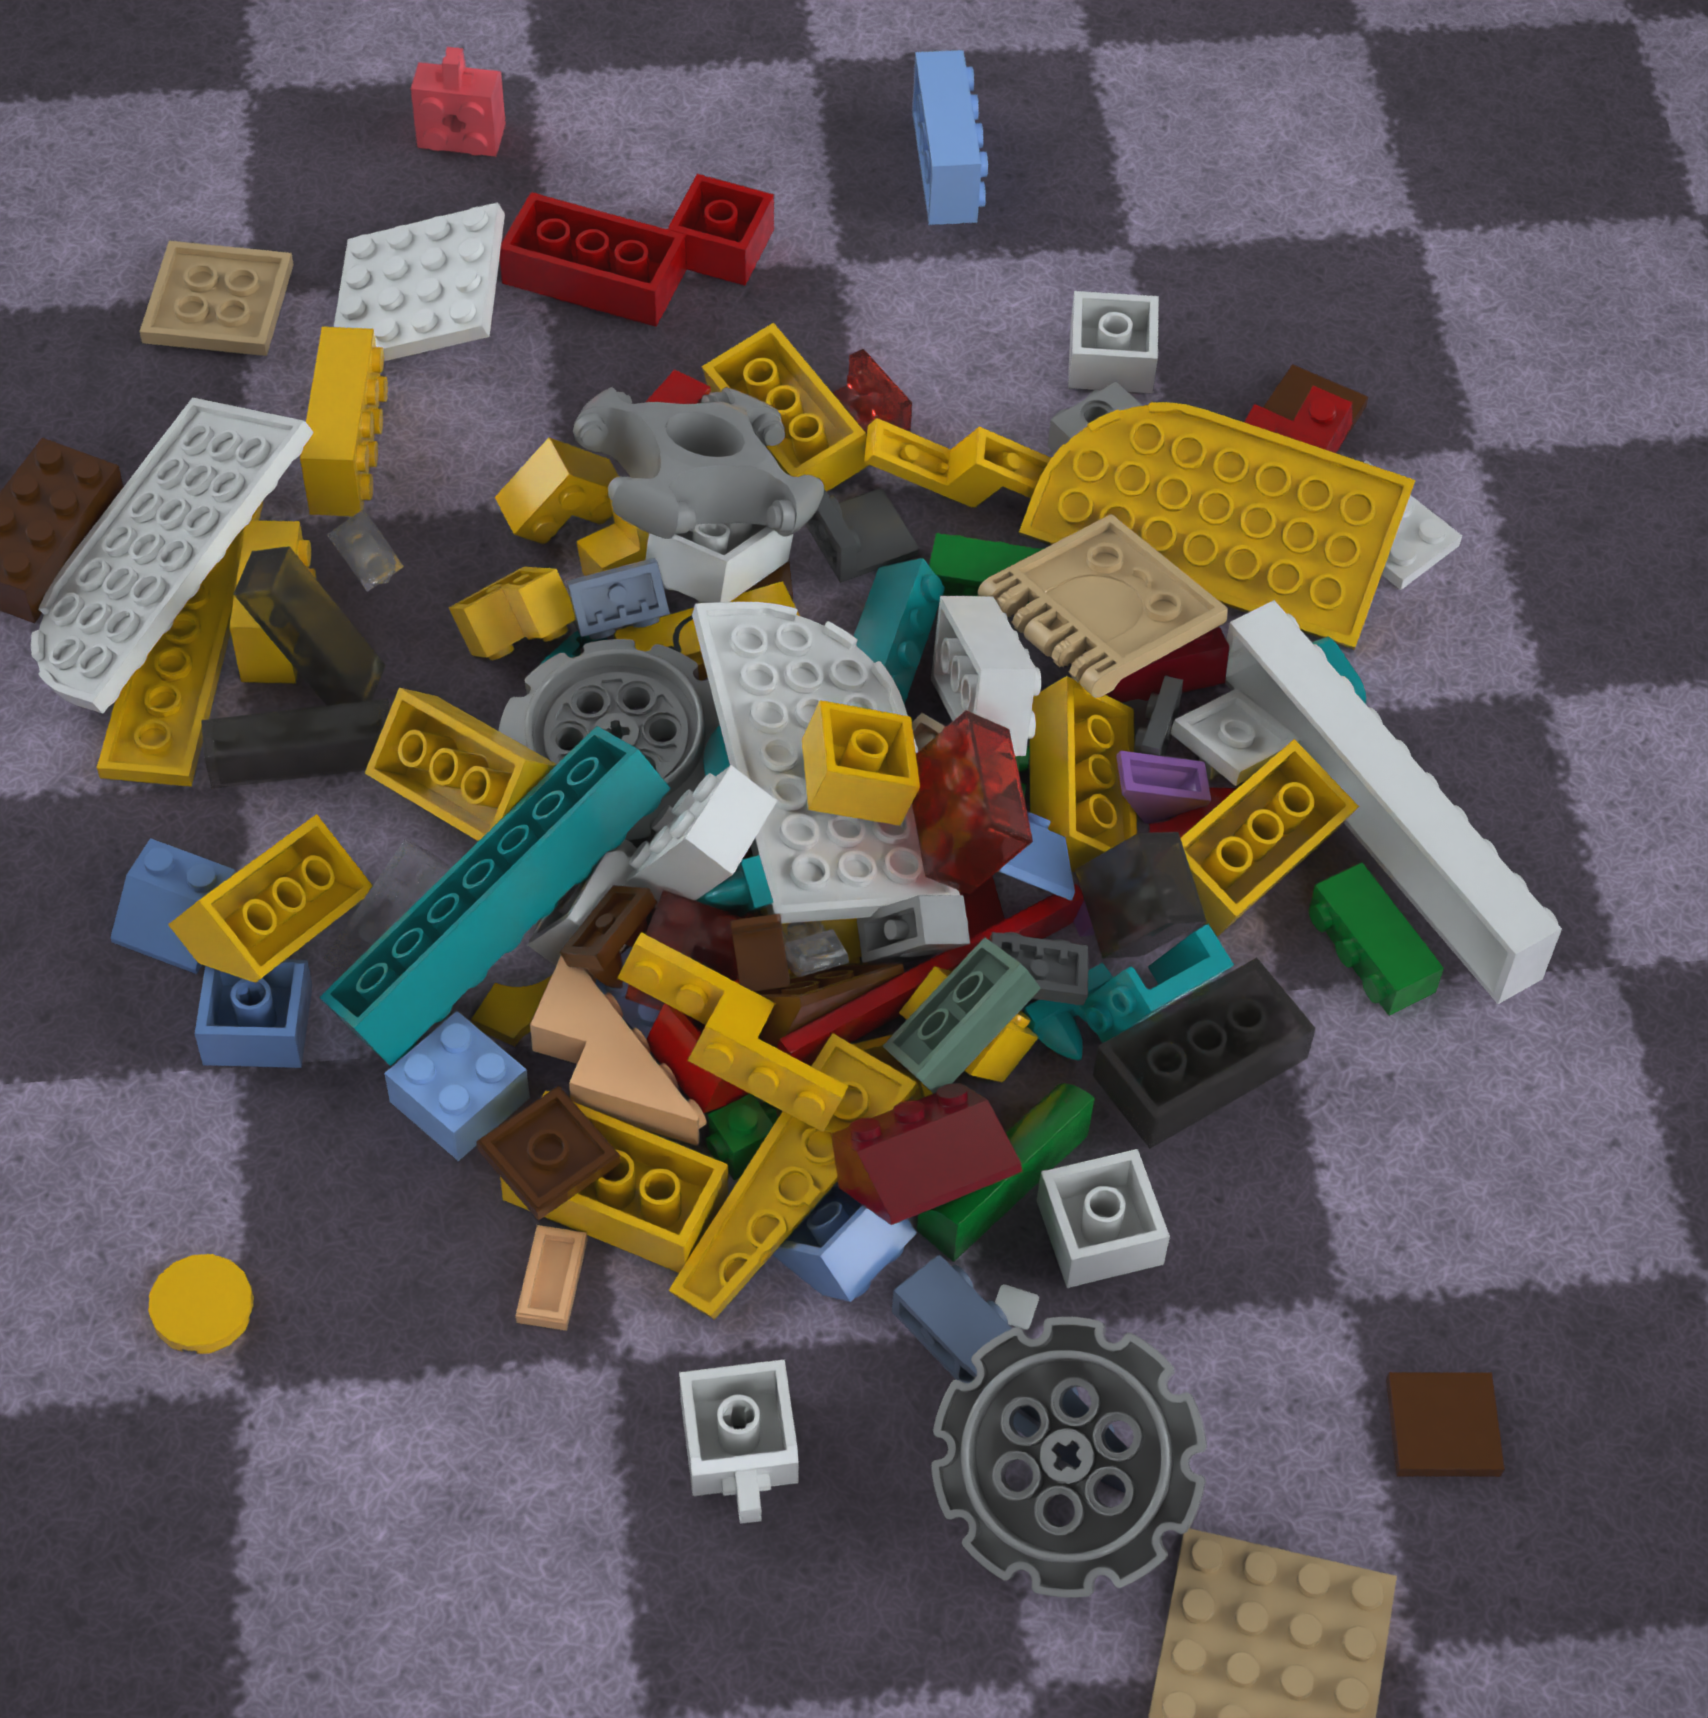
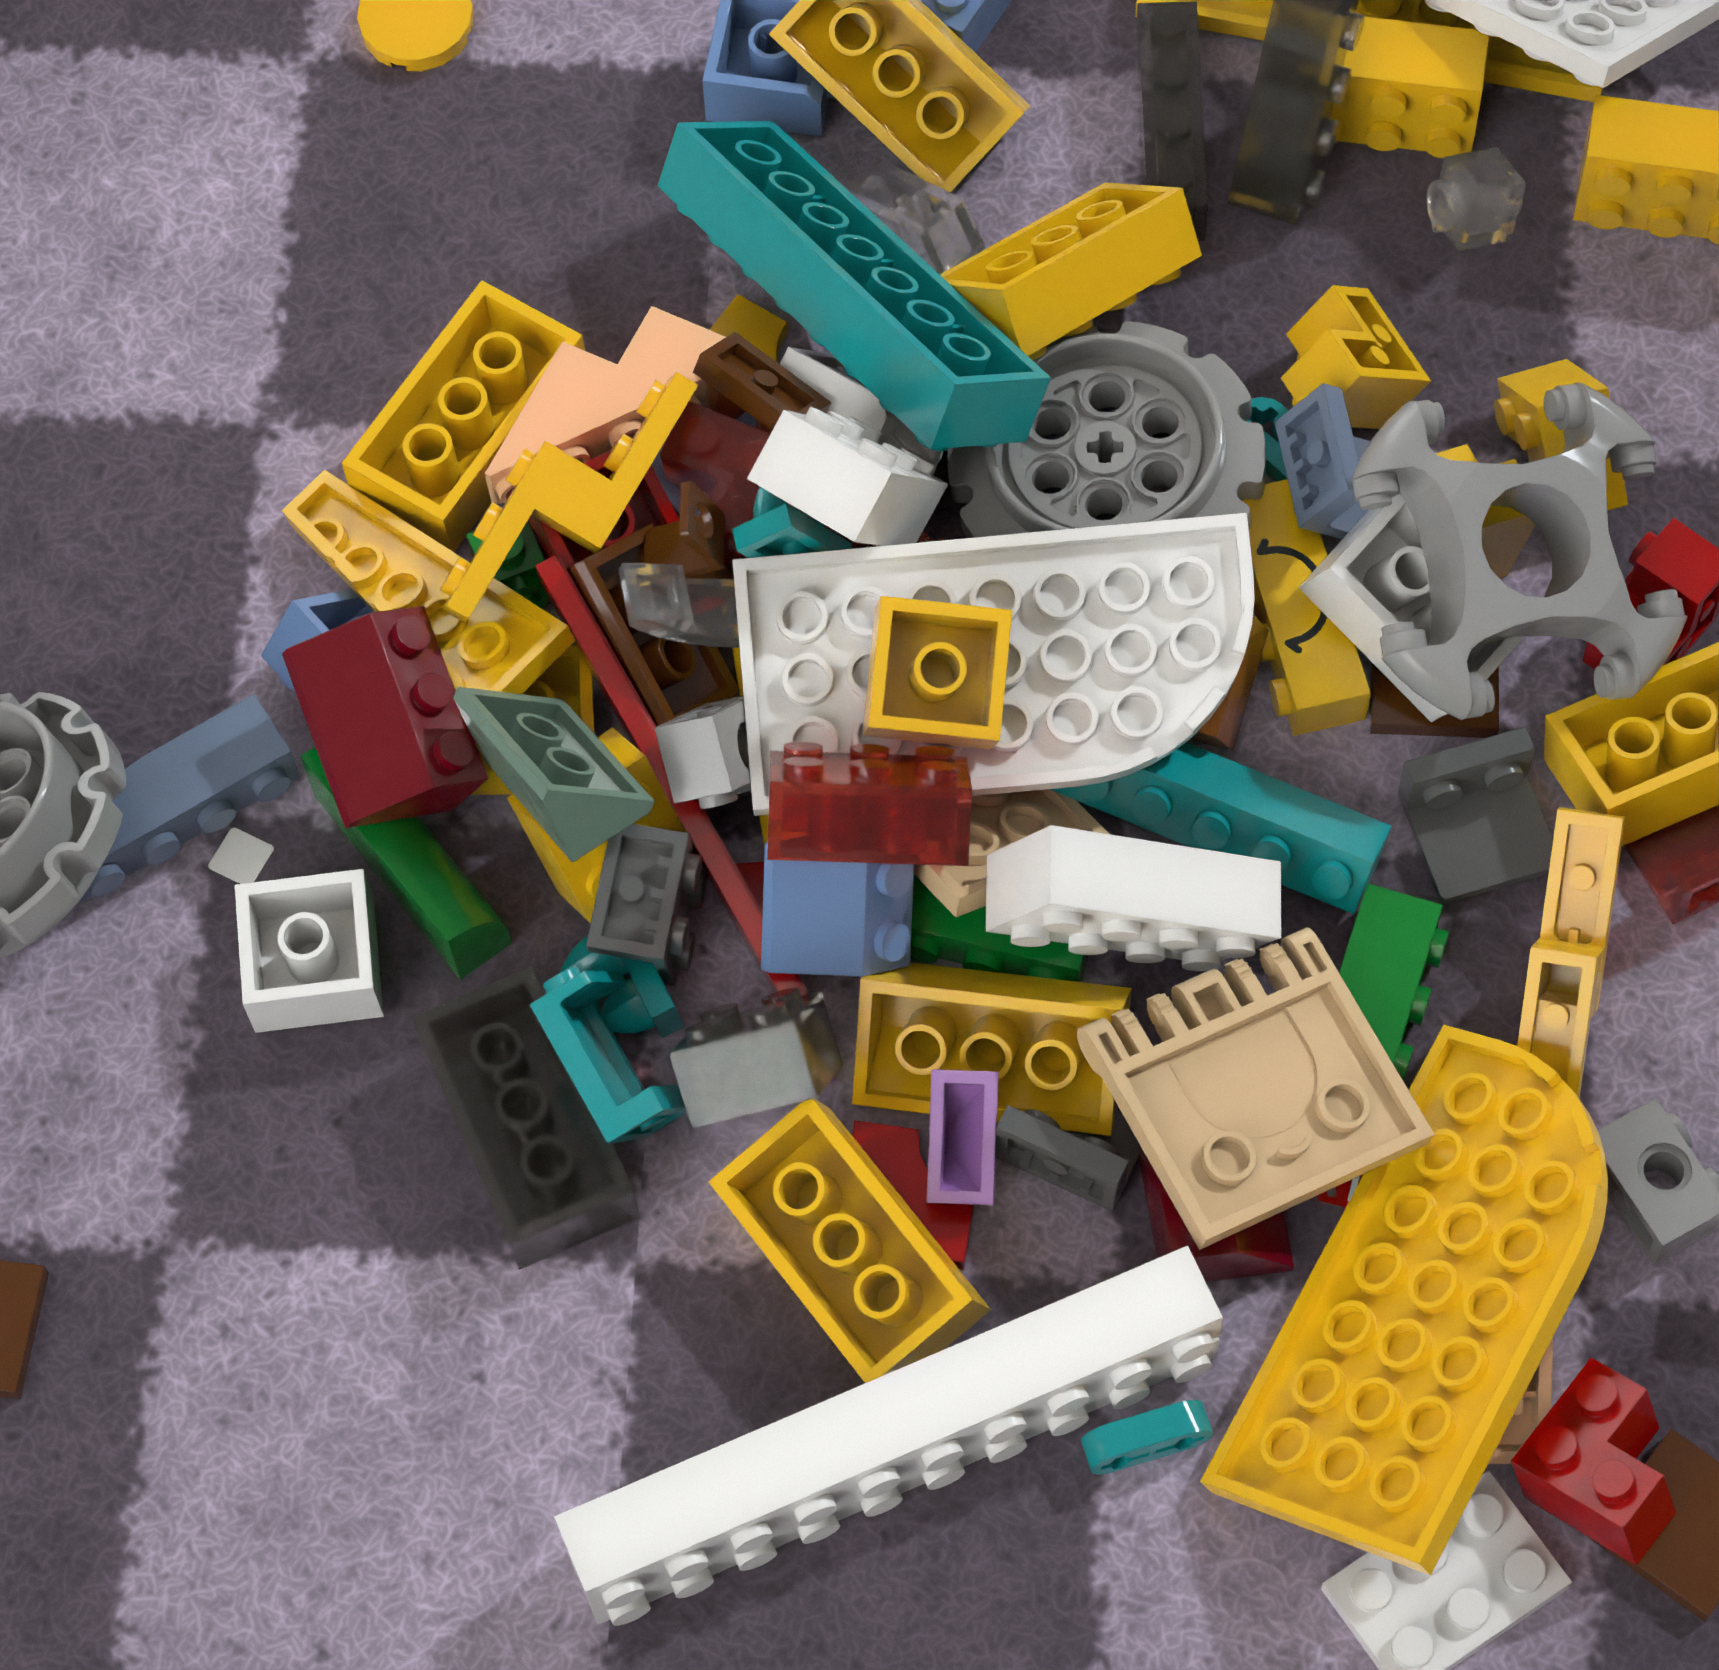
camera: 105 degrees right, 10 degrees up
(457, 1085) = (634, 258): light blue brick -> none
(548, 1152) = (488, 326): reddish brown tile -> none
(551, 1277) = (366, 356): light nougat tile -> none
(745, 1458) = (117, 517): white hinge -> none
(1232, 736) = (1035, 1251): white hinge -> none
(1374, 939) = (678, 1387): green brick -> none

